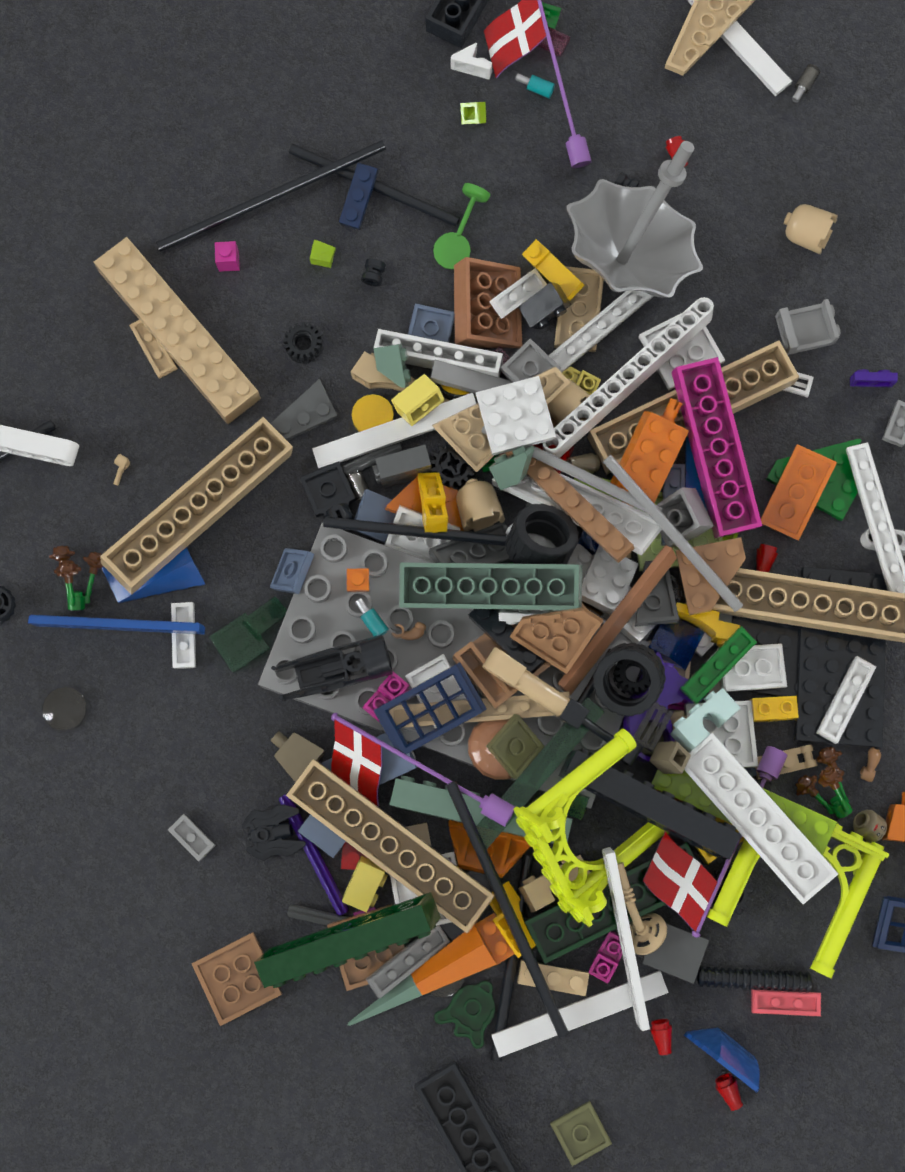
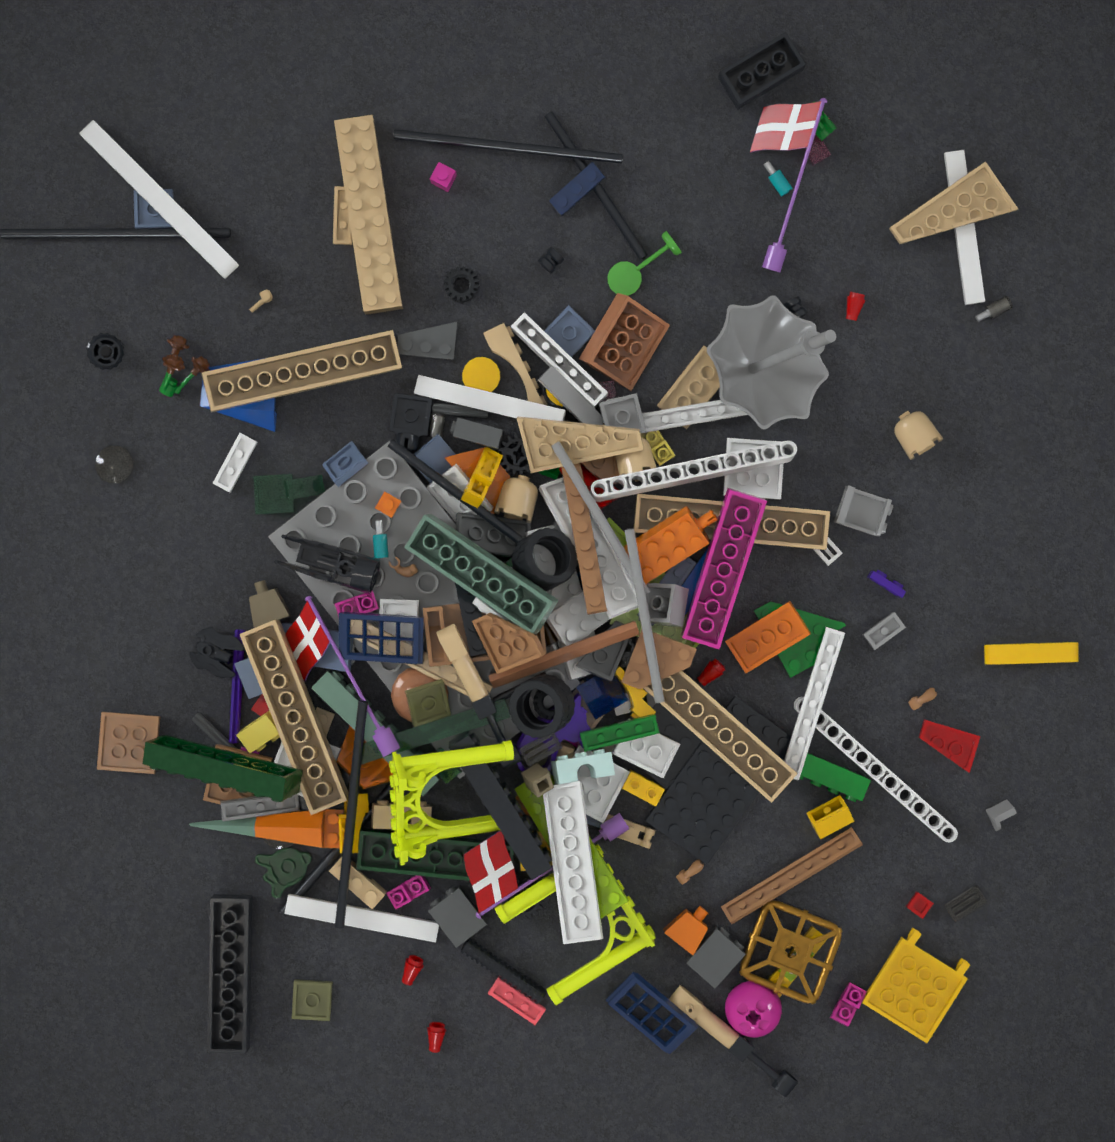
camera: 30 degrees right, 10 degrees up
(116, 624) = (188, 425): blue tile -> none
(191, 837) = (154, 619): light grey plate -> none
(322, 254) = (520, 219): lime slope -> none
(391, 363) = (516, 348): sand green slope -> none
(418, 400) = (519, 389): light yellow brick -> none
(467, 63) = (733, 125): white slope -> none
(473, 113) = (712, 172): lime slope -> none
(512, 468) = (556, 489): sand green slope -> none
(515, 415) = (583, 451): white plate -> none
(518, 293) = (653, 347): white plate -> none
(544, 306) = (667, 371): black brick -> none
(552, 269) = (692, 344): yellow slope -> none
(587, 462) = (620, 514): dark tan cone -> none
(625, 939) = (425, 887): white tile -> none
(640, 927) = (442, 888): tan dish -> none
(728, 1054) = (448, 1013): blue wedge -> none
(831, 777) = (647, 865): reddish brown plant -> none
(846, 699) = (701, 814): white tile -> none
(870, 825) = (658, 915): dark tan head -> none

